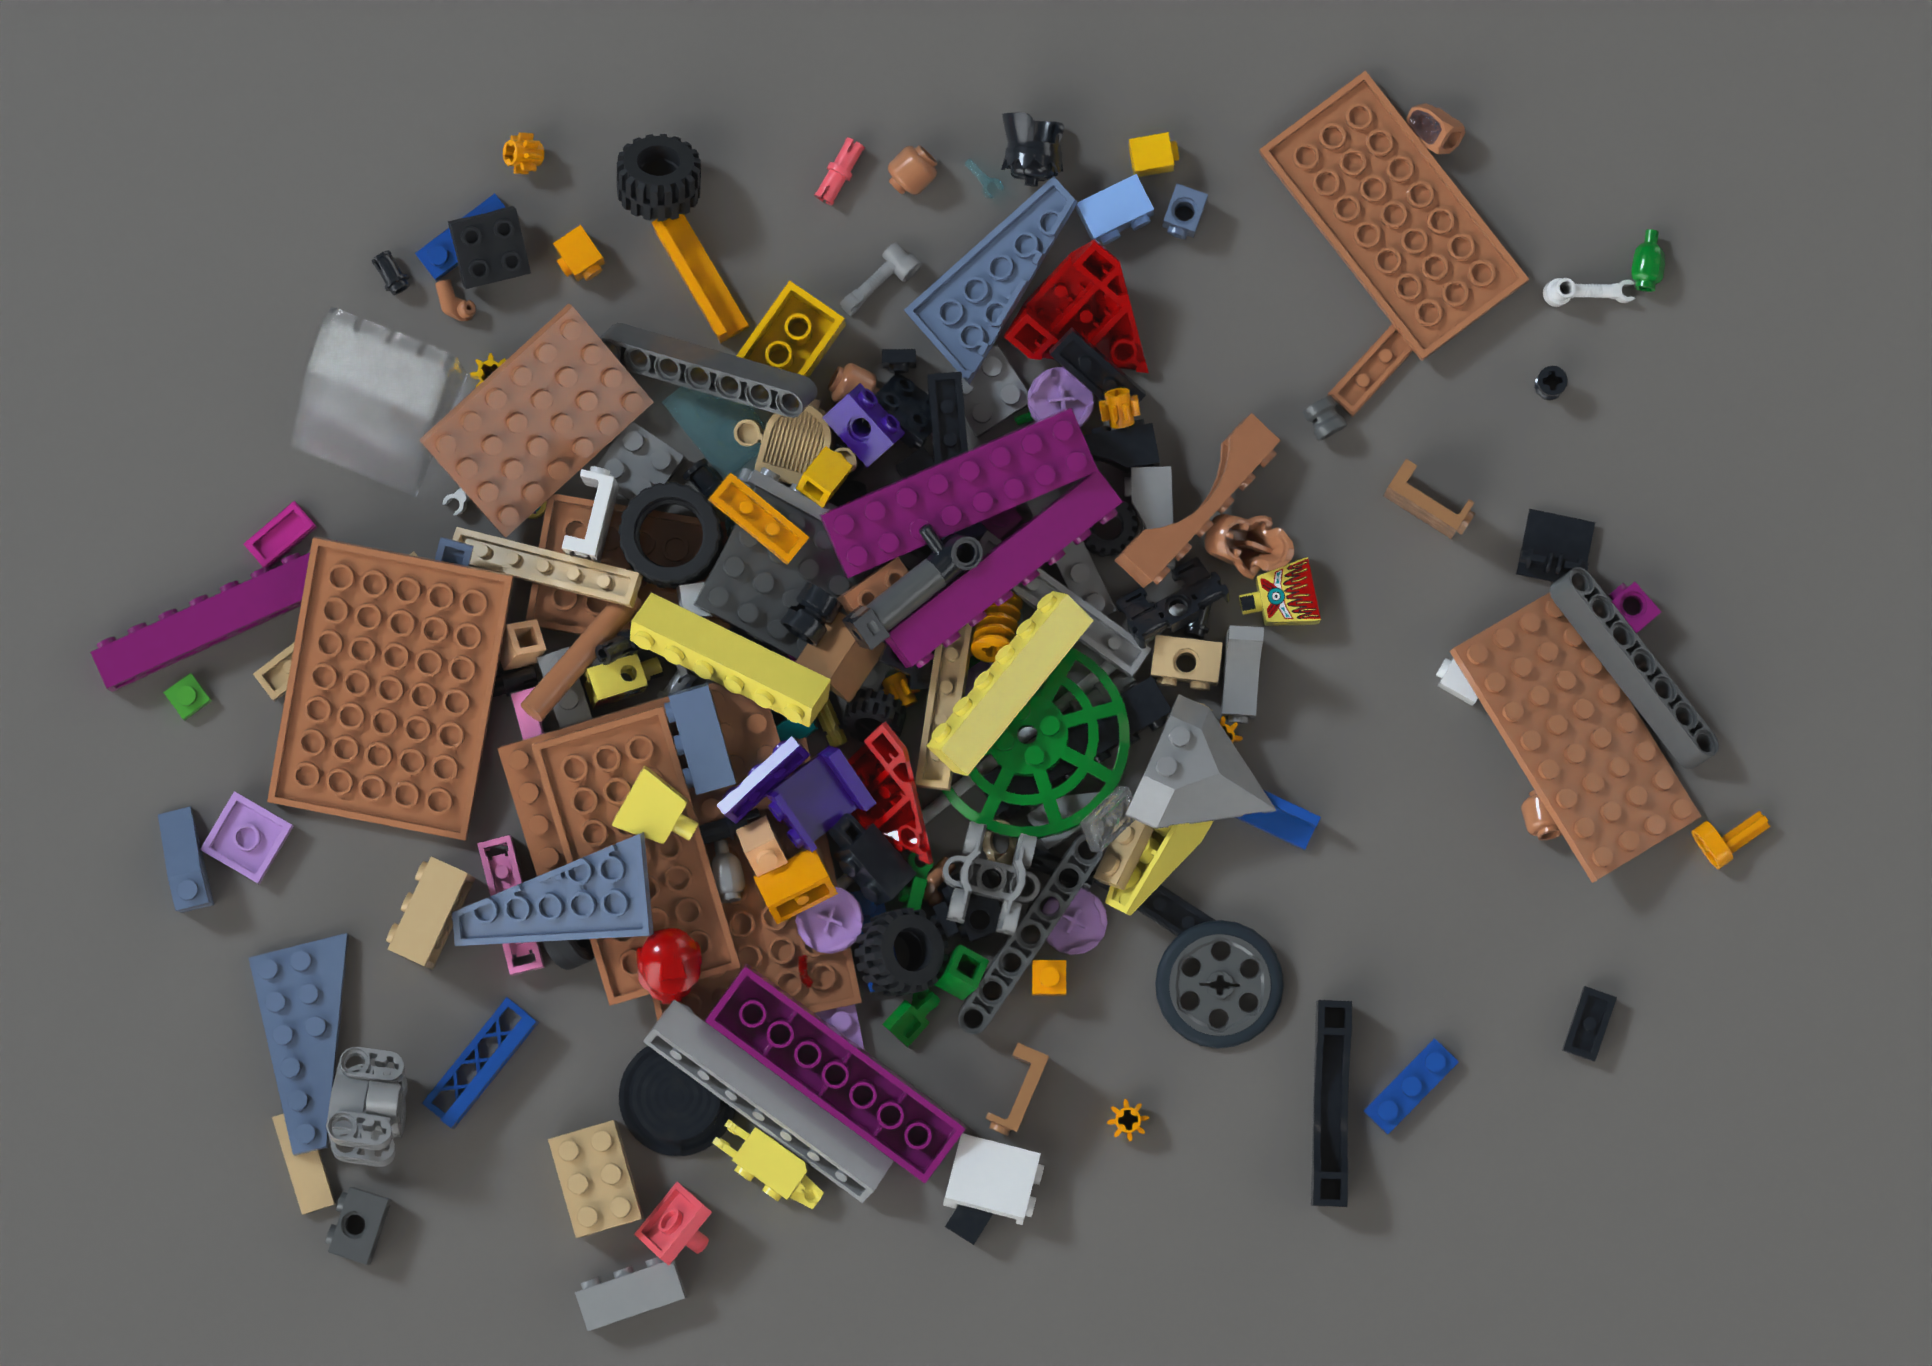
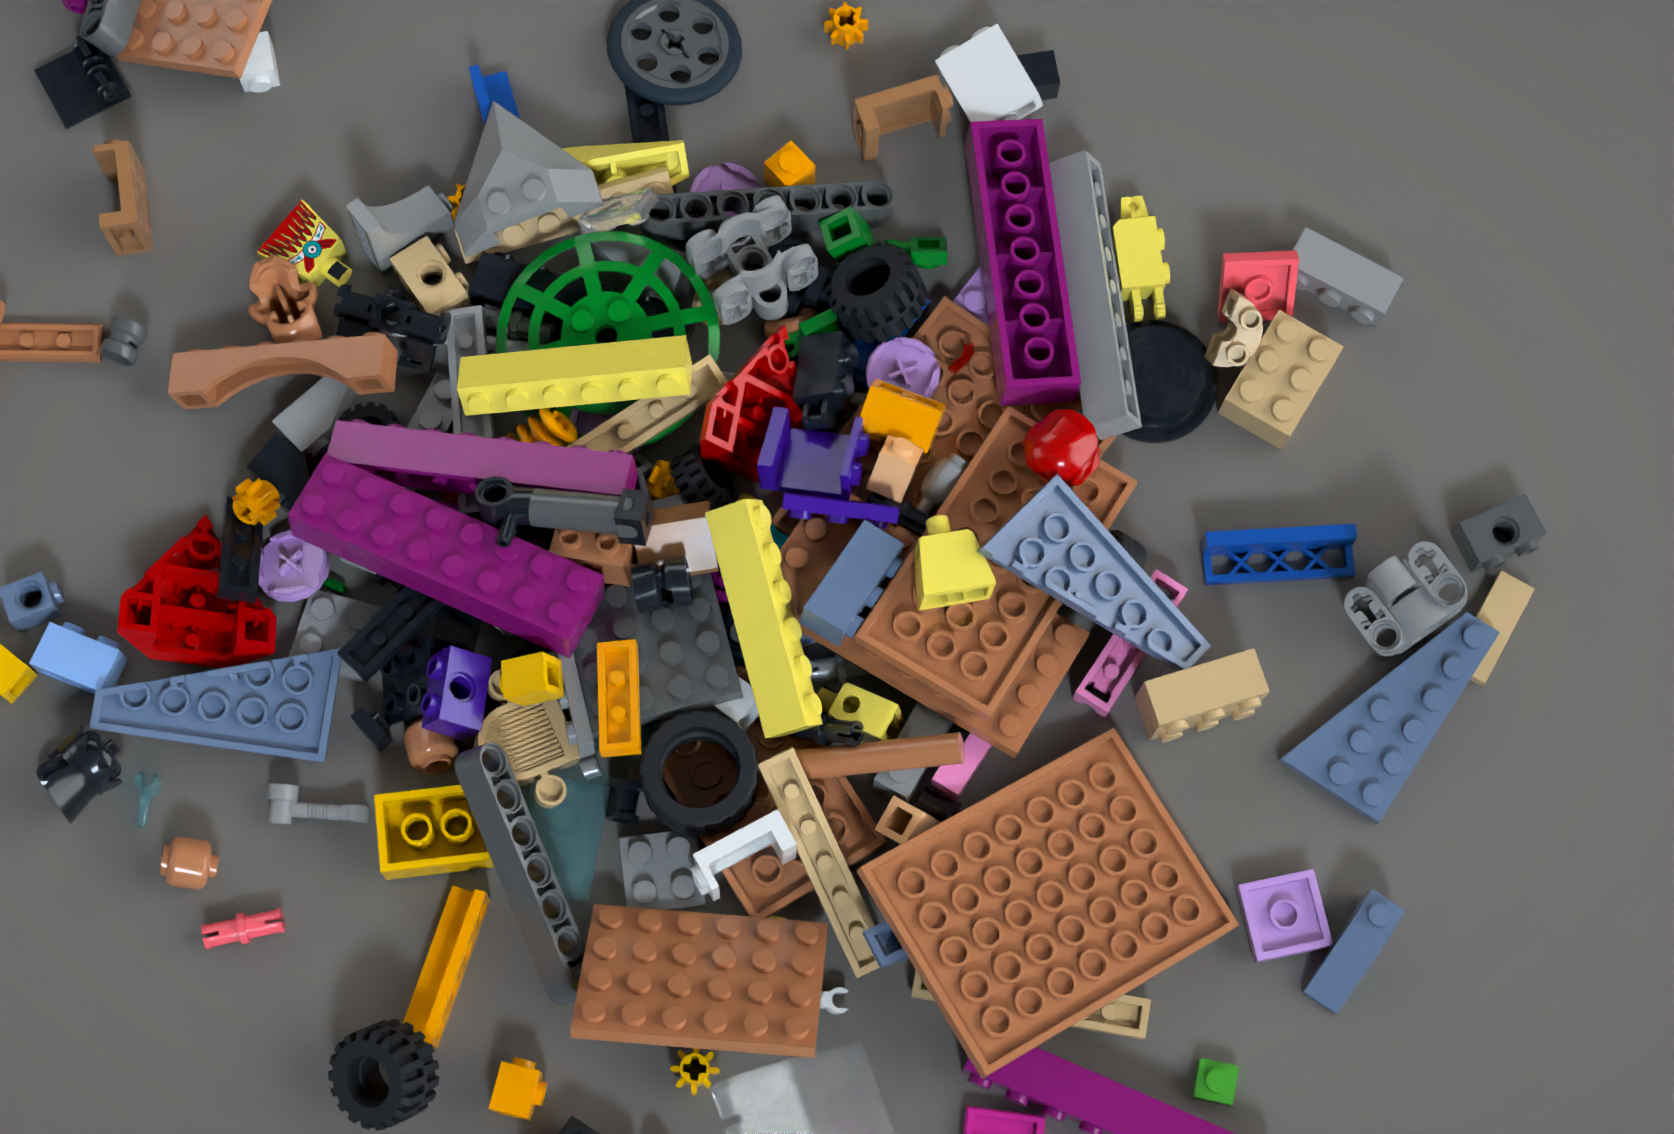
camera: 140 degrees left, 10 degrees down
(647, 1172) = (1240, 337): none -> tan cylinder

